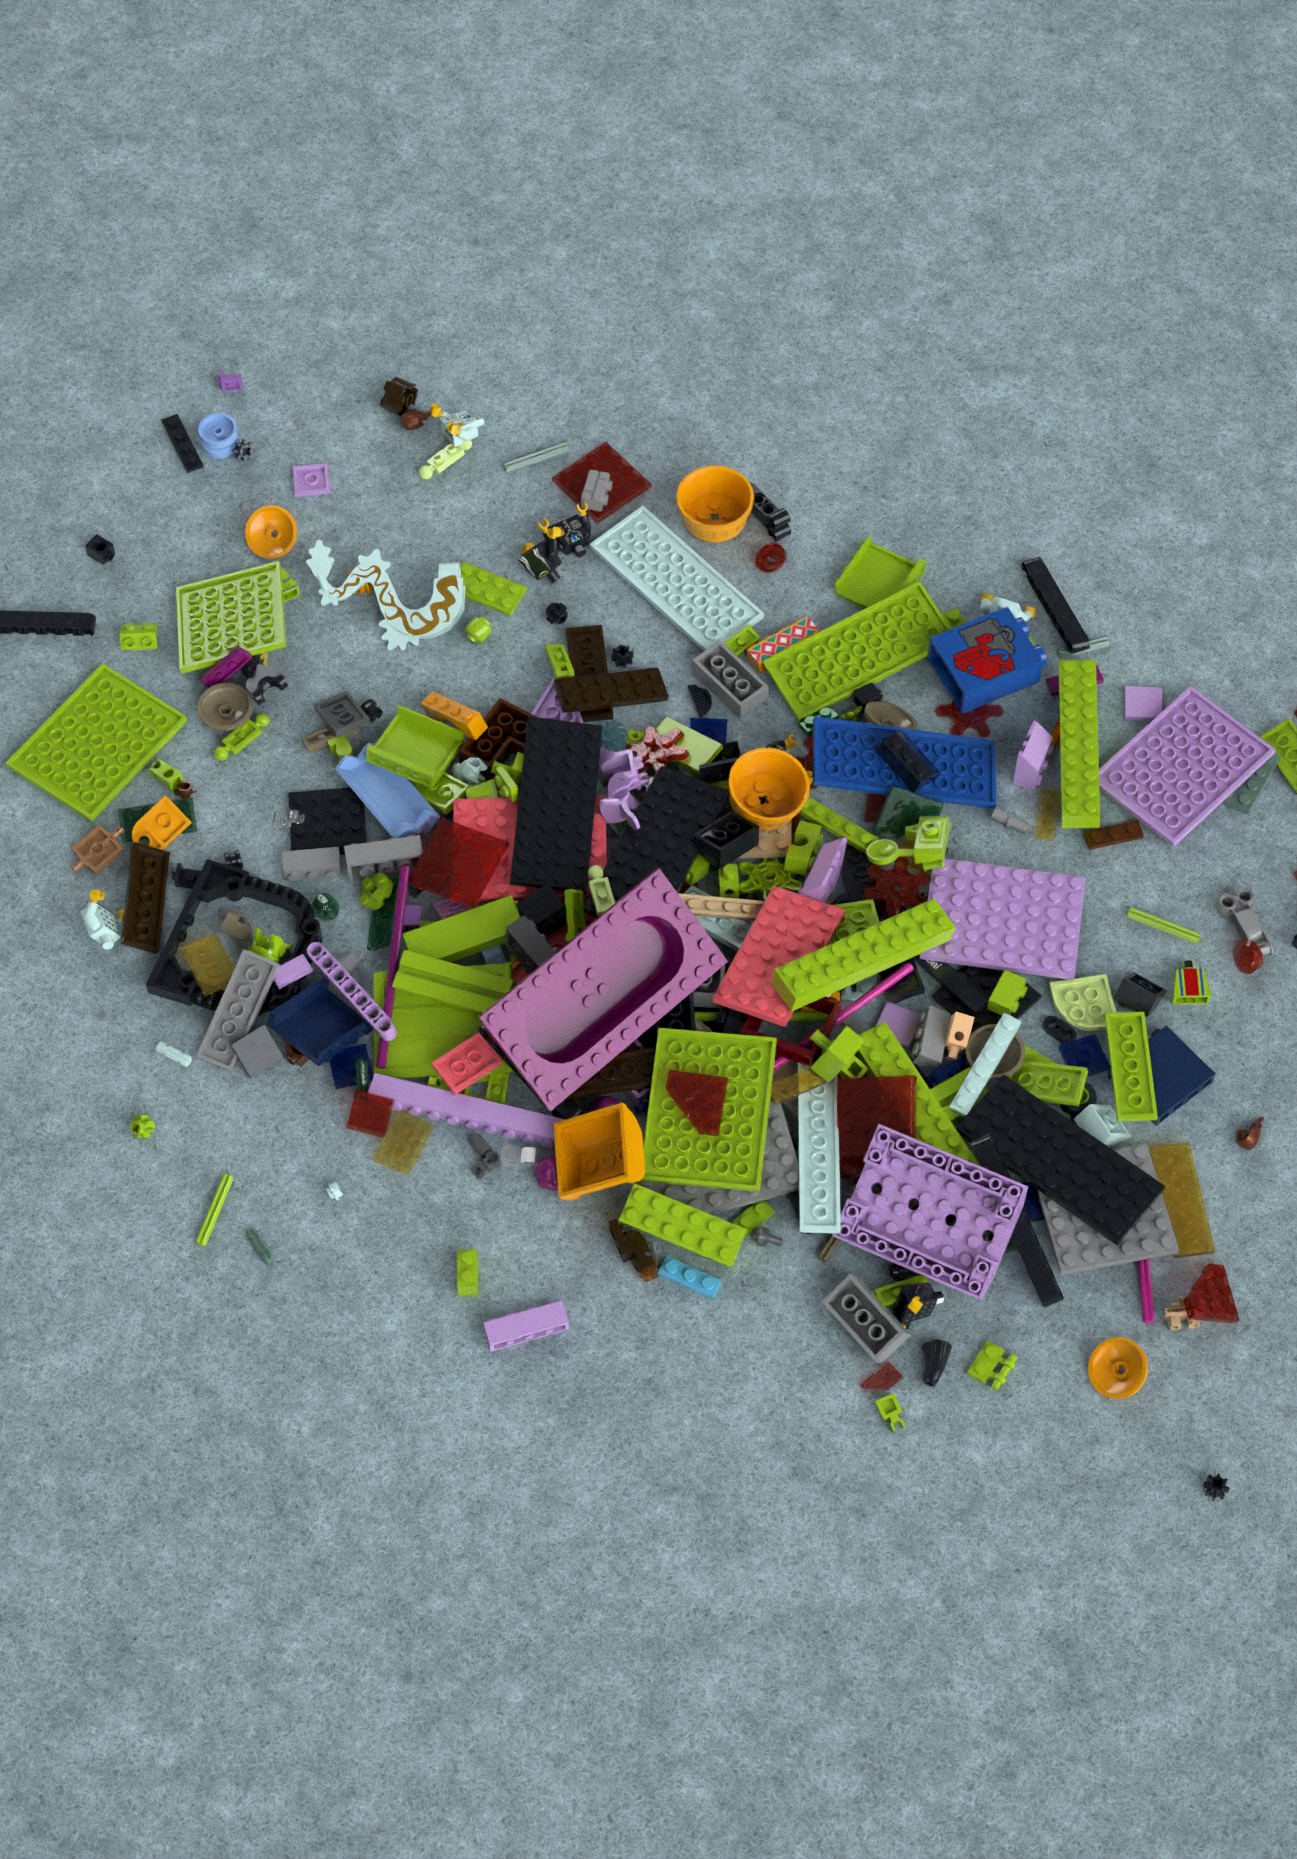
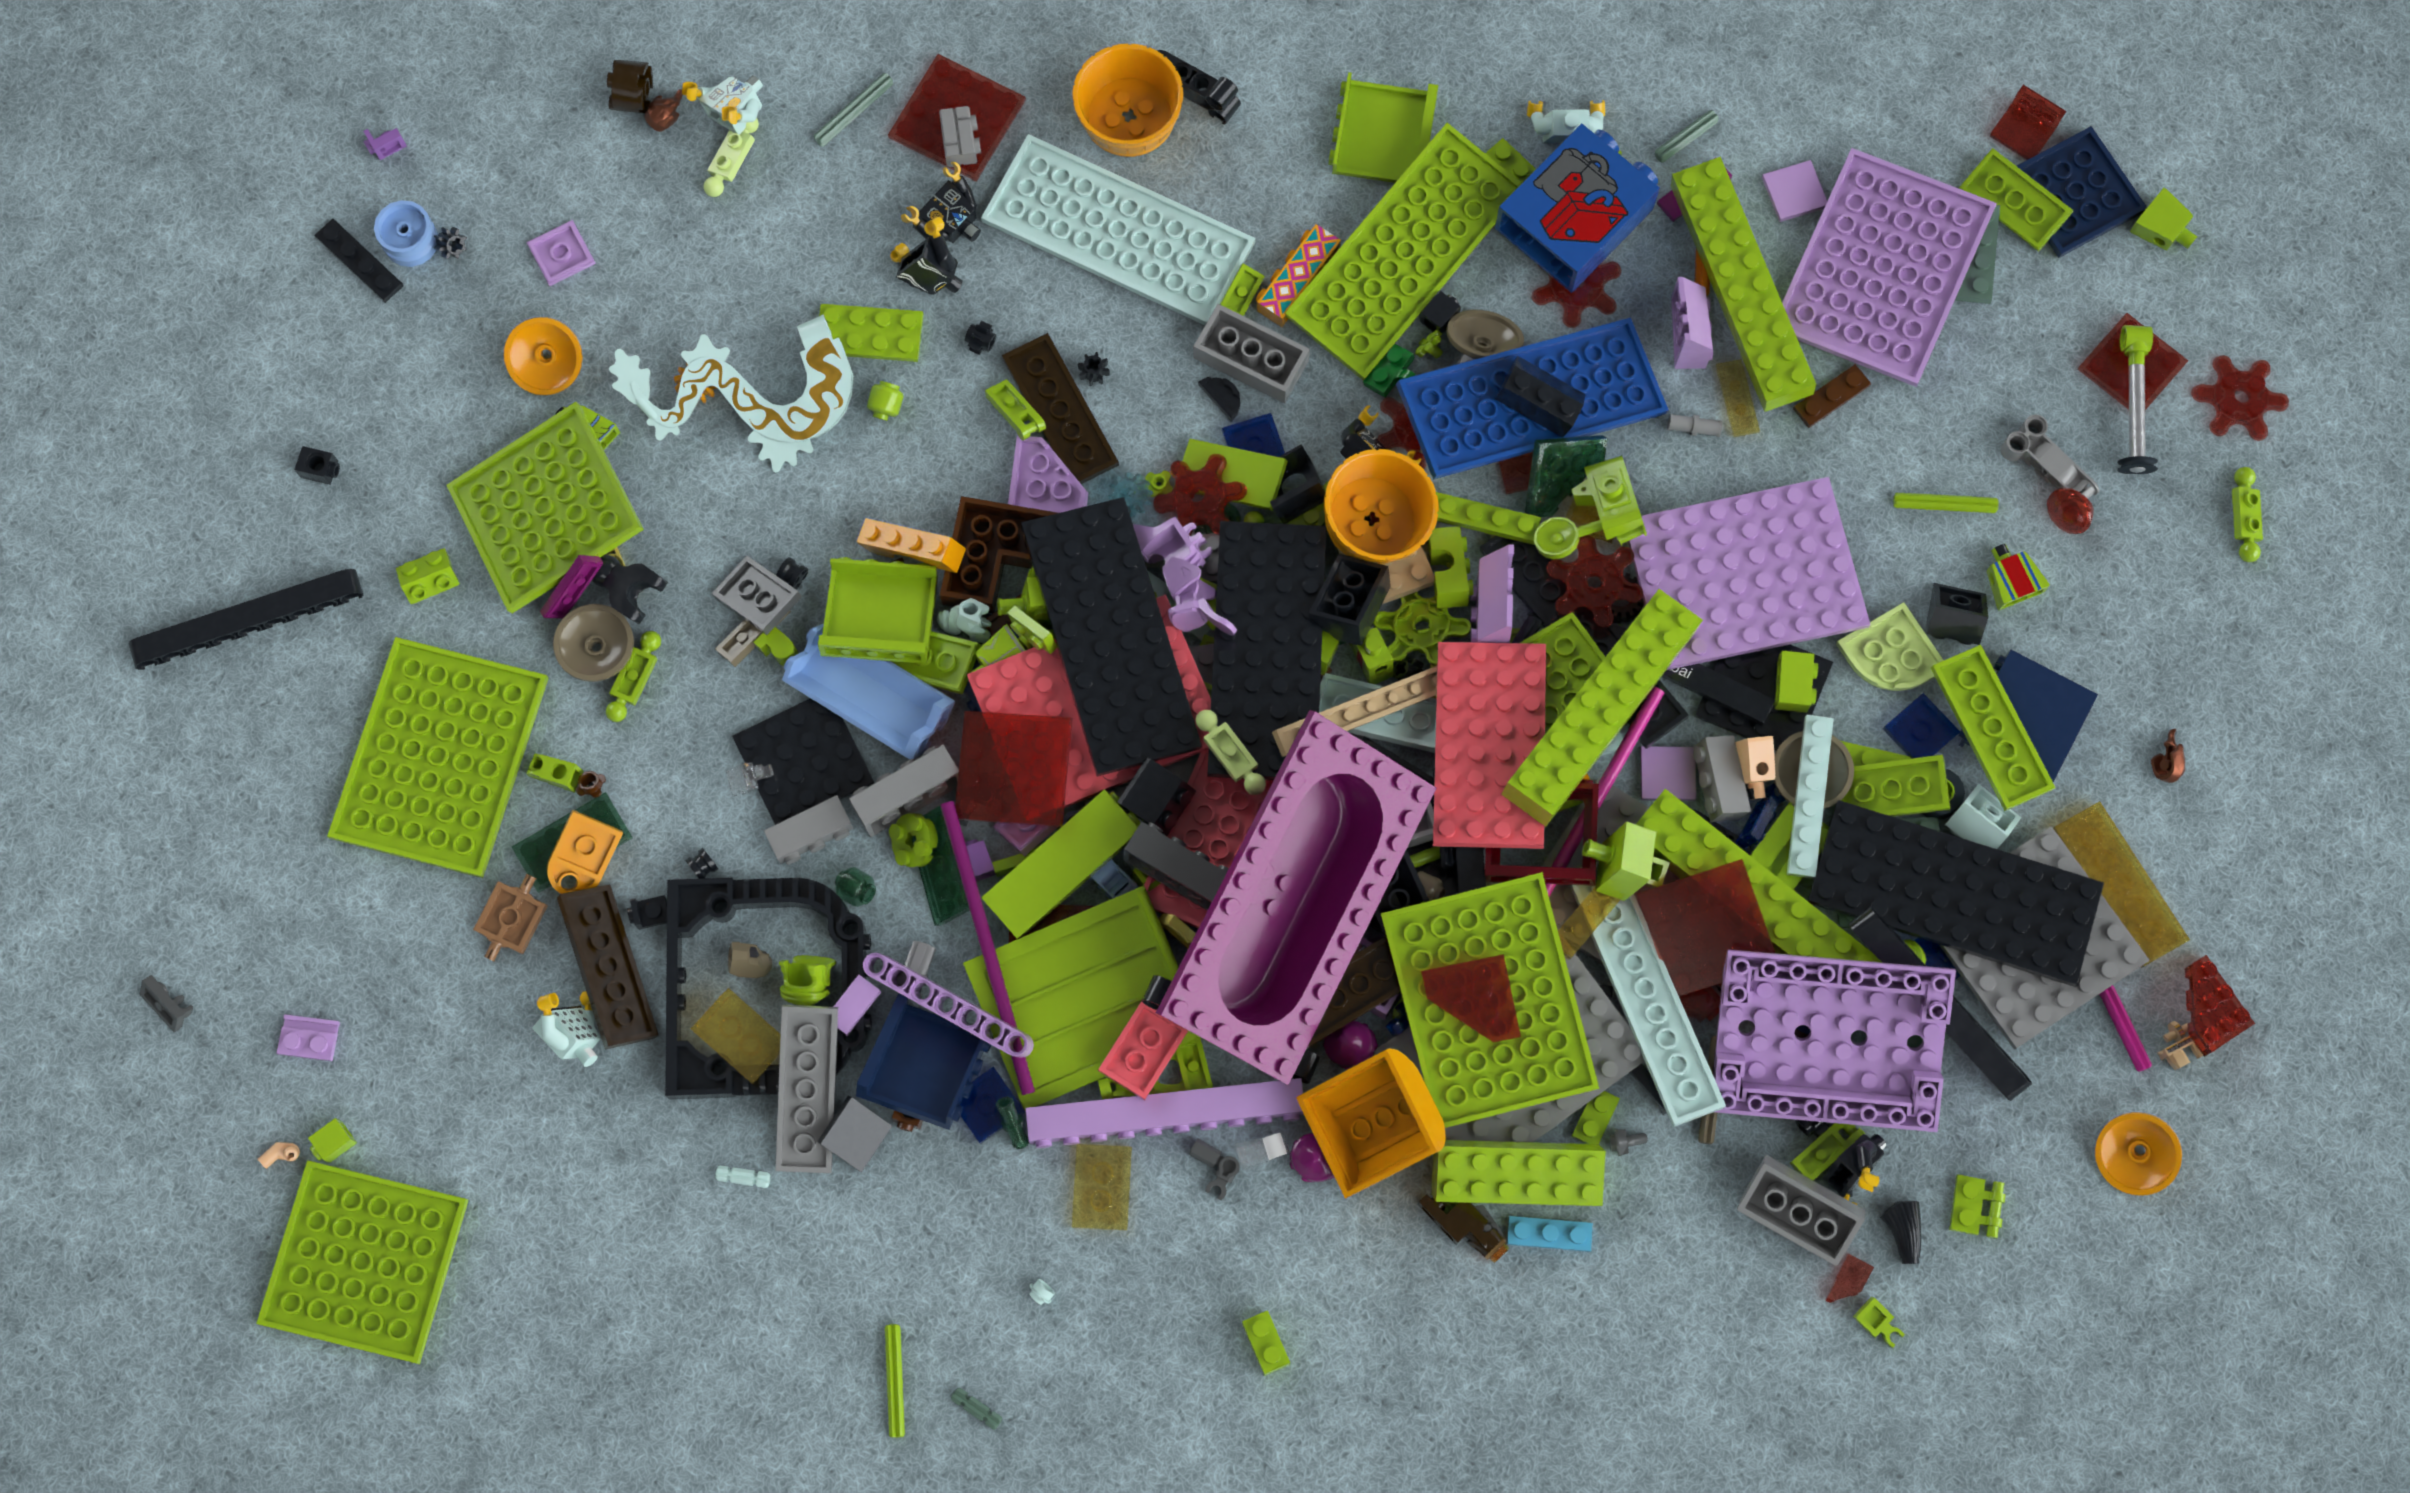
camera: 20 degrees left, 15 degrees up
(142, 1126) = (748, 1300): lime gear -> none
(370, 1113) = (1043, 1165): clear red tile -> none
(449, 983) = (1085, 948): lime brick -> none
(526, 1325) = (1371, 1387): lavender brick -> none
(575, 912) = (1202, 790): lime plate -> none
(610, 690) = (1101, 427): dark brown plate -> none
(772, 551) = (1229, 140): clear red hat -> none
(1056, 605) = (1630, 90): black beam -> none
(1060, 1031) = (1872, 708): black beam -> none
(1216, 1492) = (2309, 1265): black gear -> none

